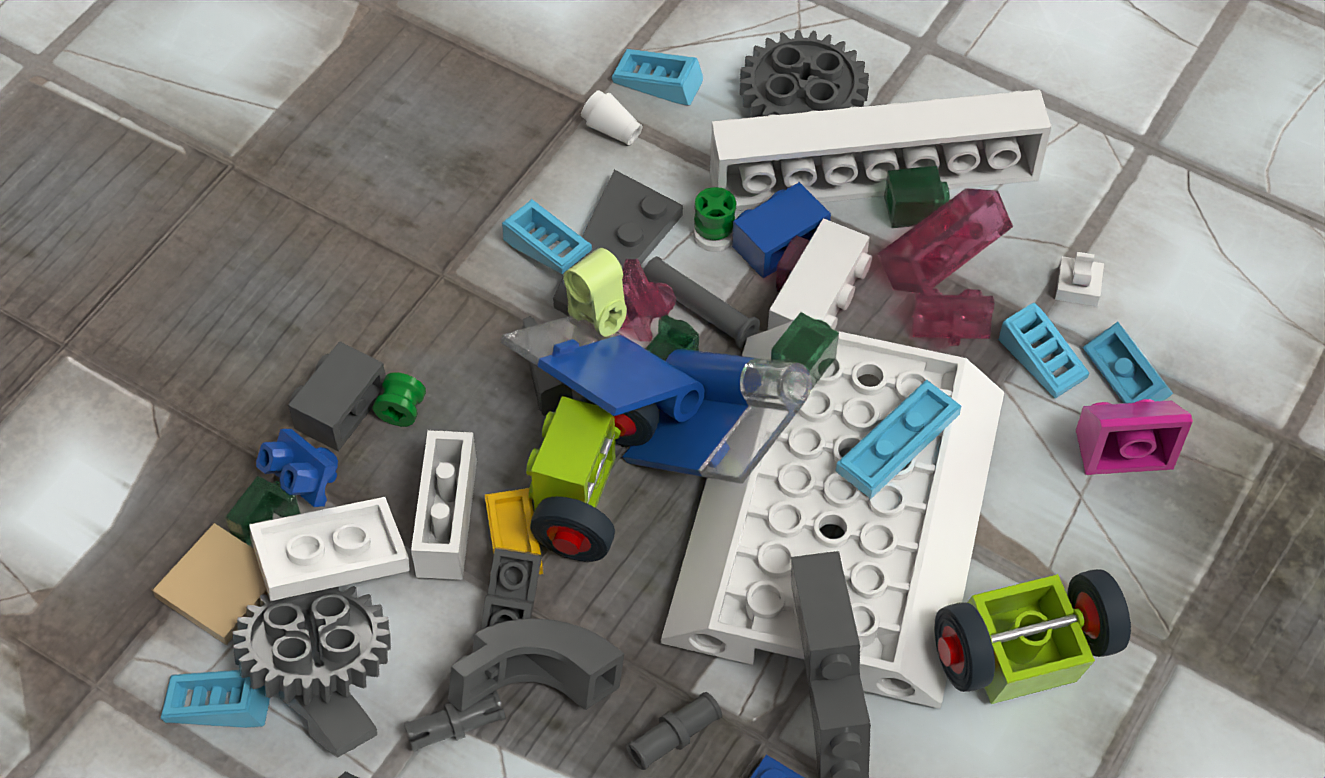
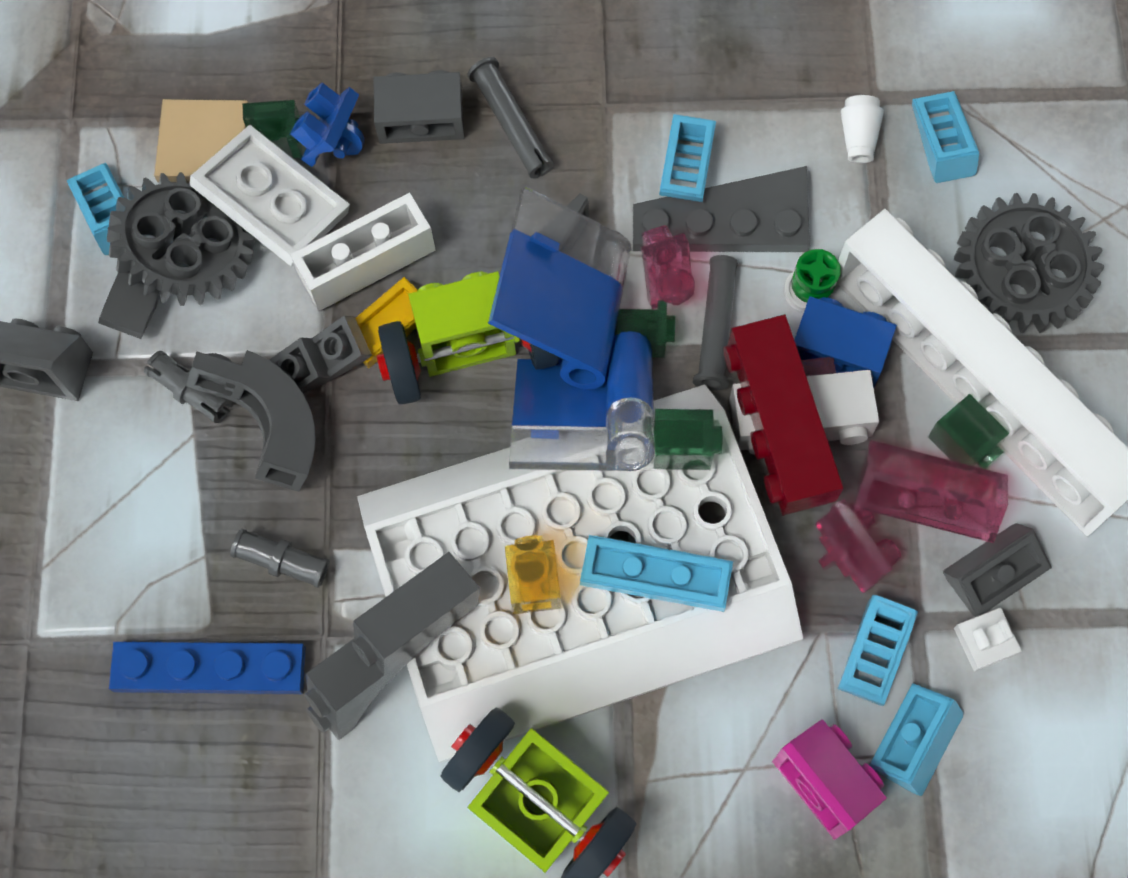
camera: 60 degrees right, 15 degrees up
(399, 399) = (447, 154): green wheel -> none
(403, 338) = (510, 116): none -> dark grey pin
(597, 291) = (623, 231): yellowish green piece -> none
(826, 284) = (783, 415): none -> dark red brick
(846, 517) = (532, 575): none -> clear yellow brick
(1028, 245) = (997, 569): none -> dark grey slope

